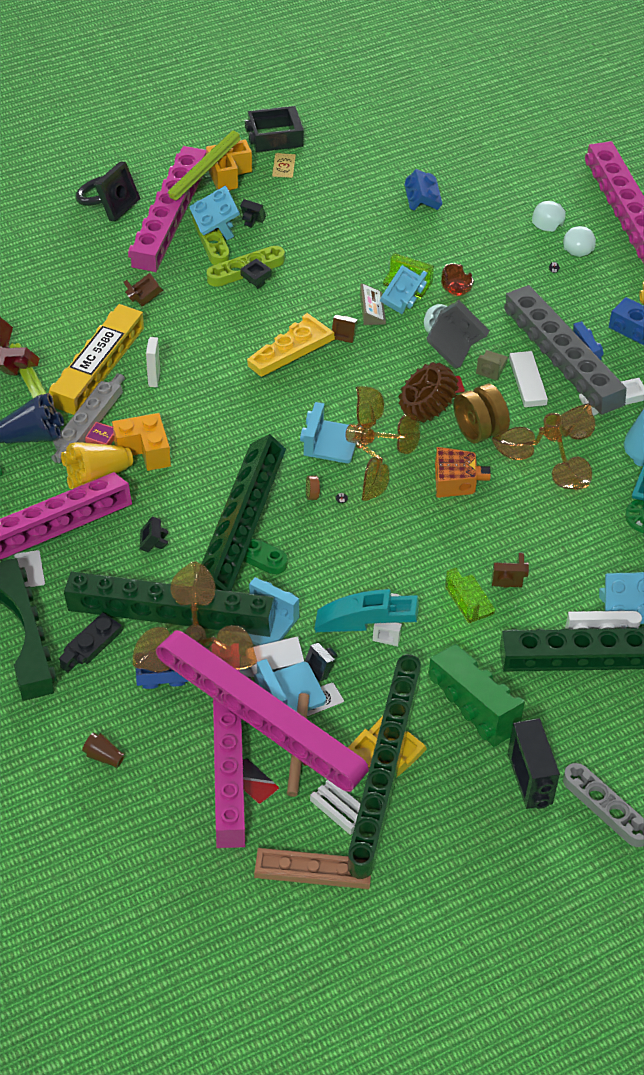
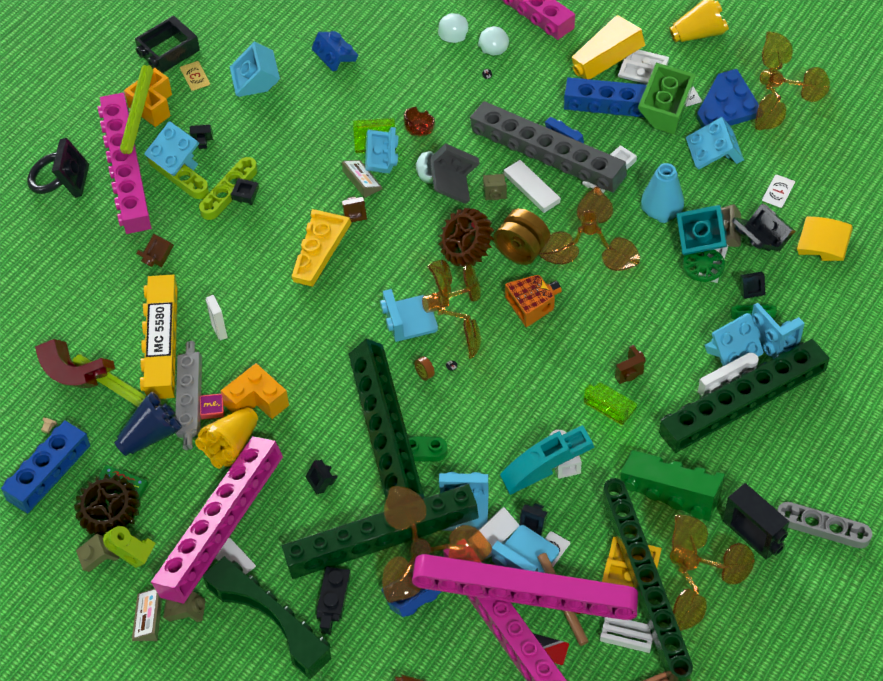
camera: 25 degrees left, 5 degrees up
(338, 179) = (254, 70): none -> medium azure slope
(439, 739) = (687, 538): none -> clear orange plant

